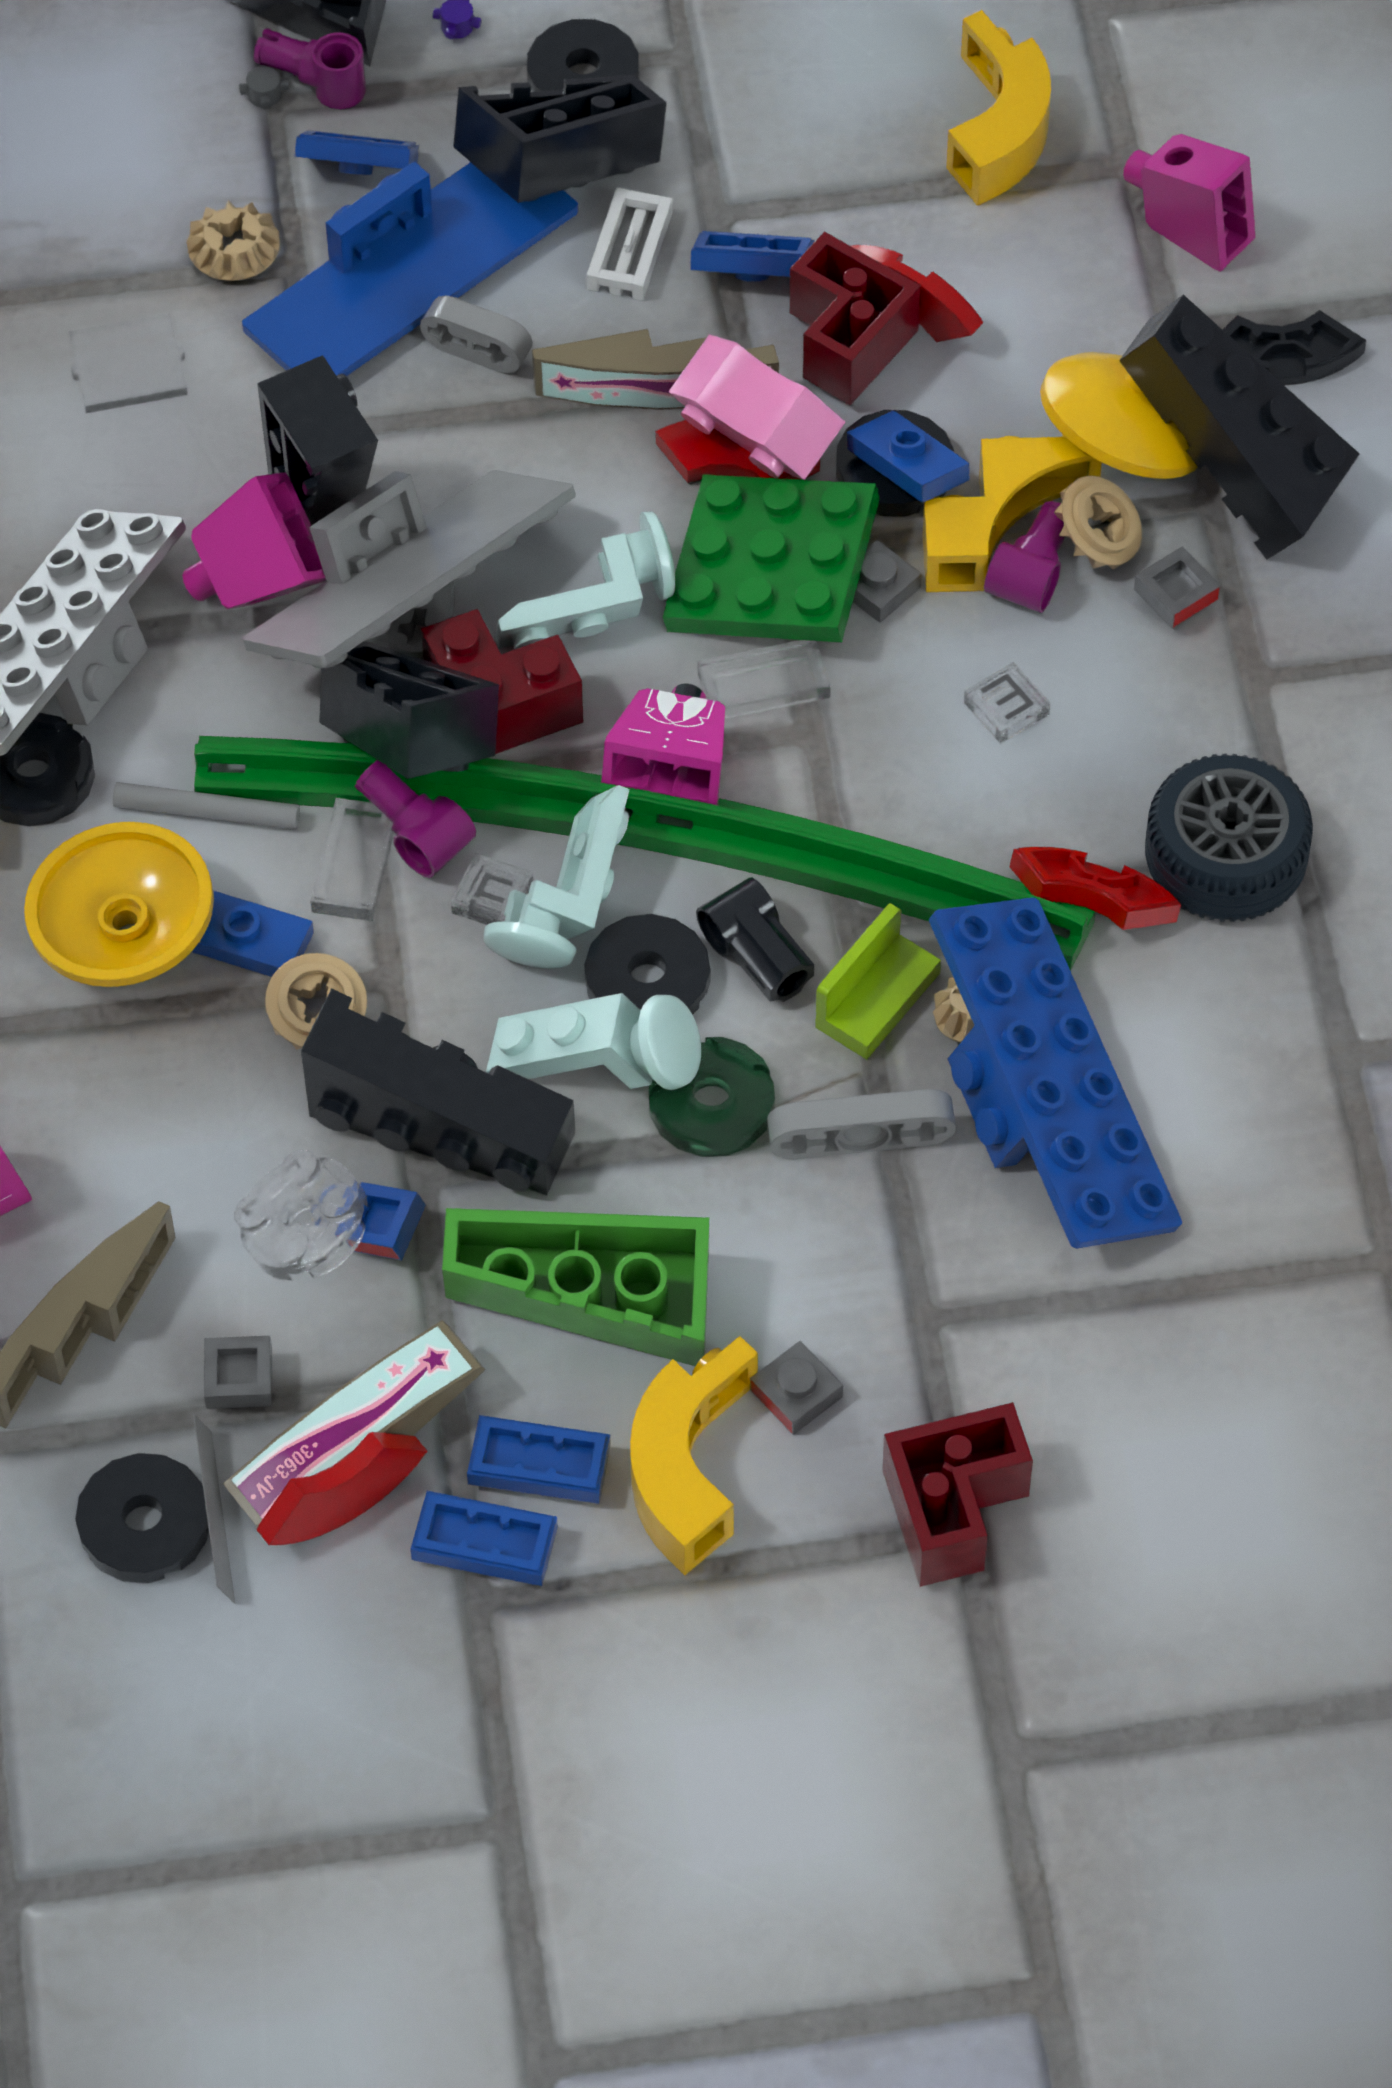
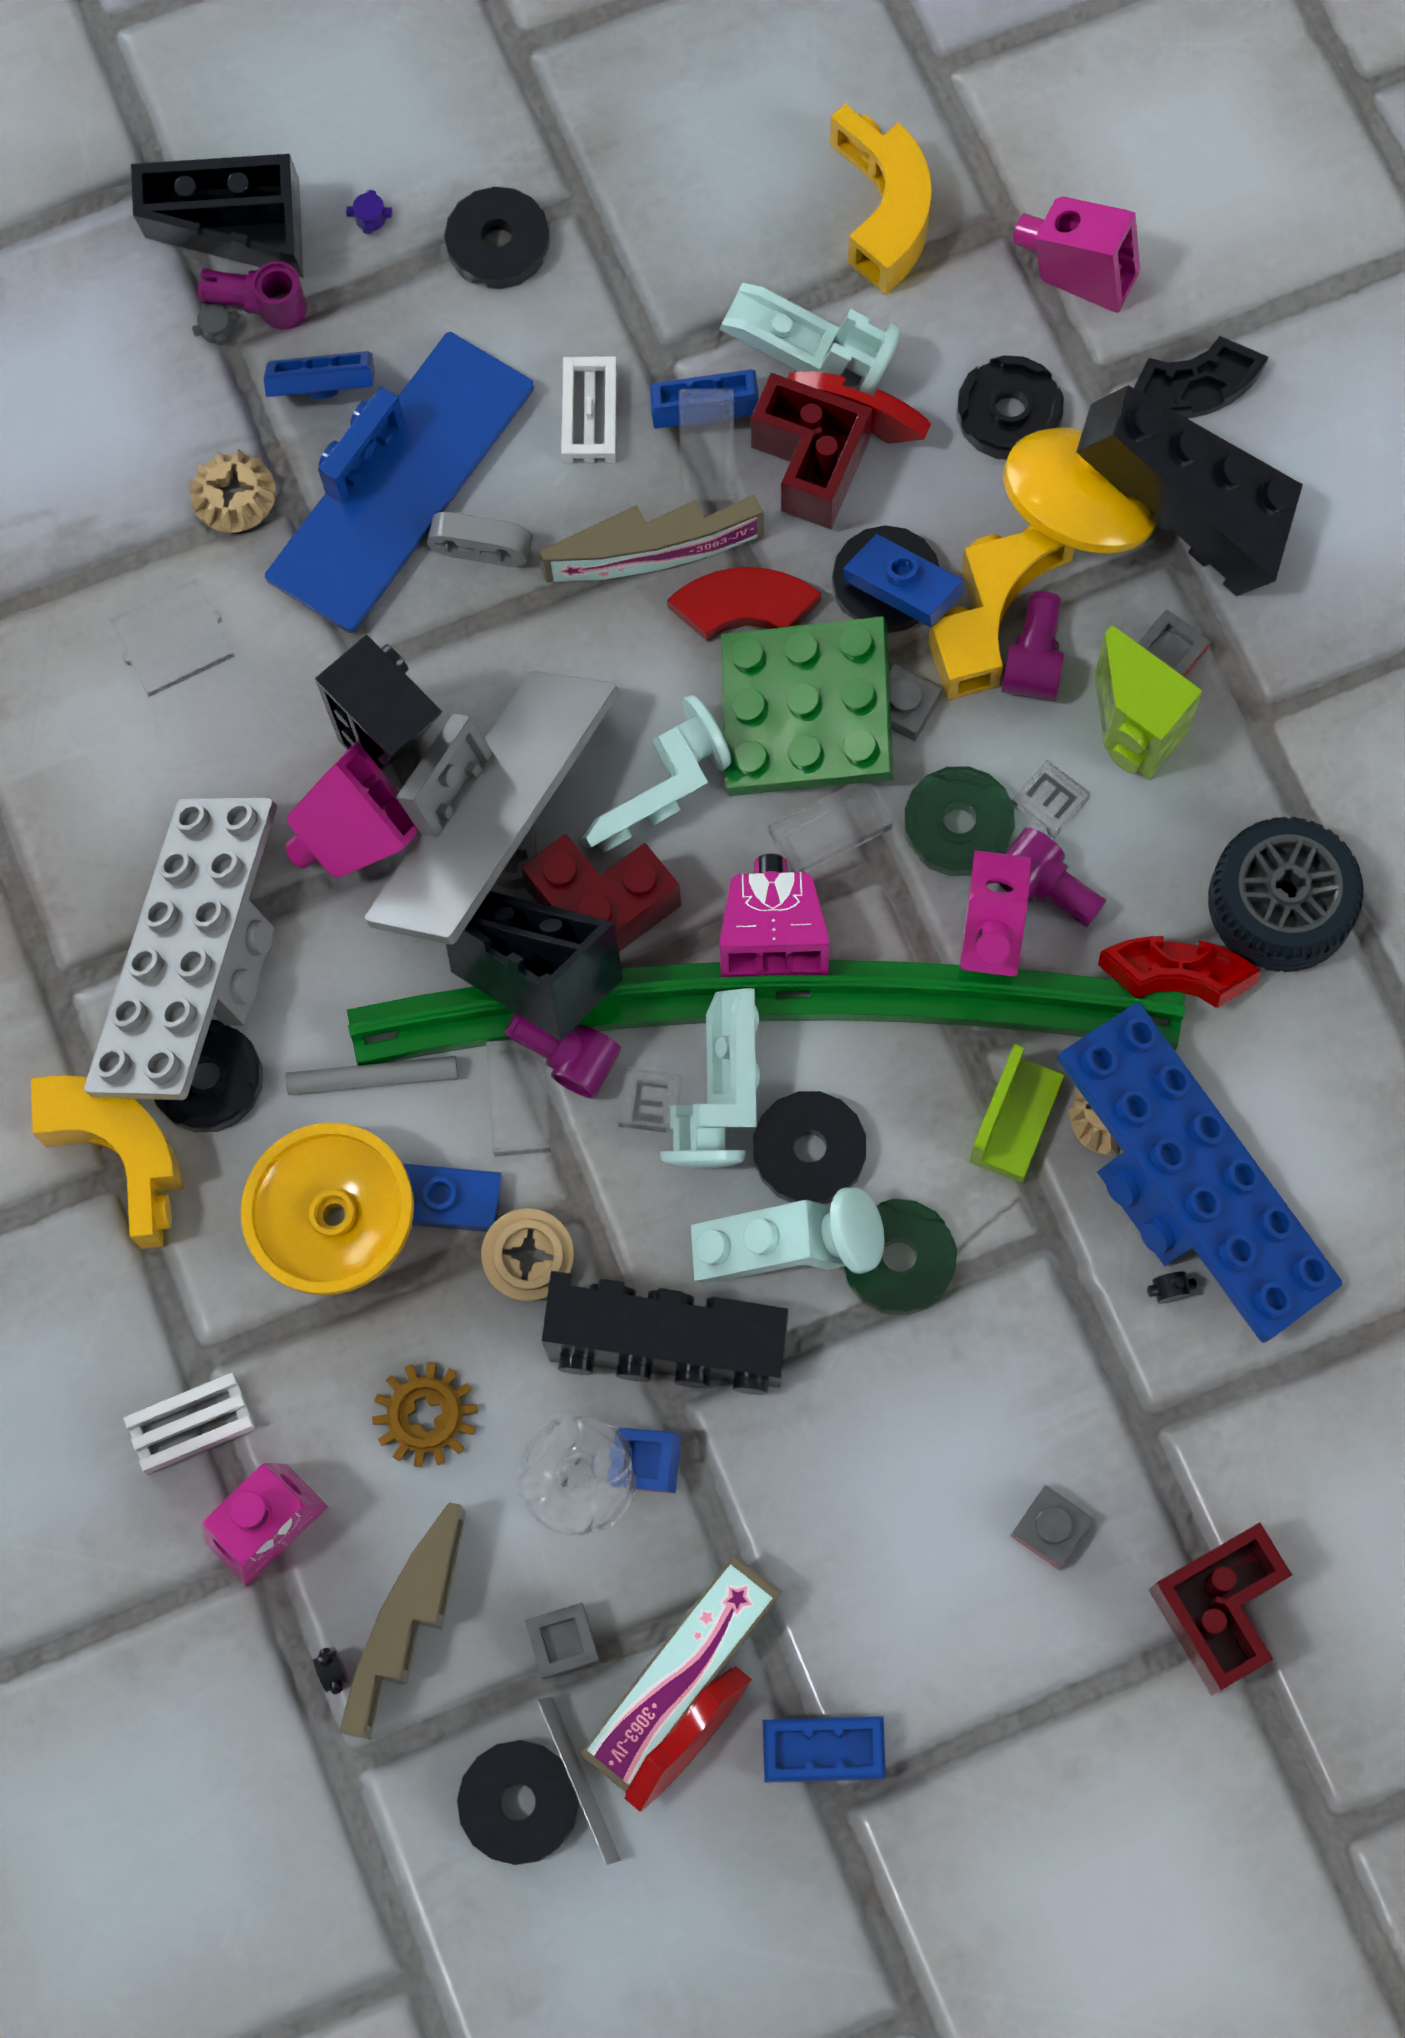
camera: 10 degrees left, 15 degrees up
(141, 1120) = (403, 1405): none -> pearl gold gear
(539, 1459) = (850, 1659): blue plate -> none
(560, 137) = (503, 325): black wedge -> none
(587, 1274) = (864, 1472): bright green wedge -> none
(671, 1495) = (964, 1653): yellow arch -> none
(742, 288) = (707, 444): none -> clear tile
(749, 928) = (885, 1085): black piece -> none
(755, 408) = (757, 566): bright pink brick -> none
(861, 1124) = (1040, 1257): light grey beam -> none
(870, 217) = (808, 340): none -> light aqua piece
(906, 779) = (995, 919): none -> dark pink torso
(910, 674) = (957, 790): none -> clear green tile
(971, 761) = (1050, 877): none -> magenta pin
(995, 1187) = (1171, 1287): none -> black piece
(1076, 305) = (1007, 378): none -> black tile
(1103, 501) = (1105, 609): tan gear -> none
(1129, 625) = (1141, 704): none -> lime slope

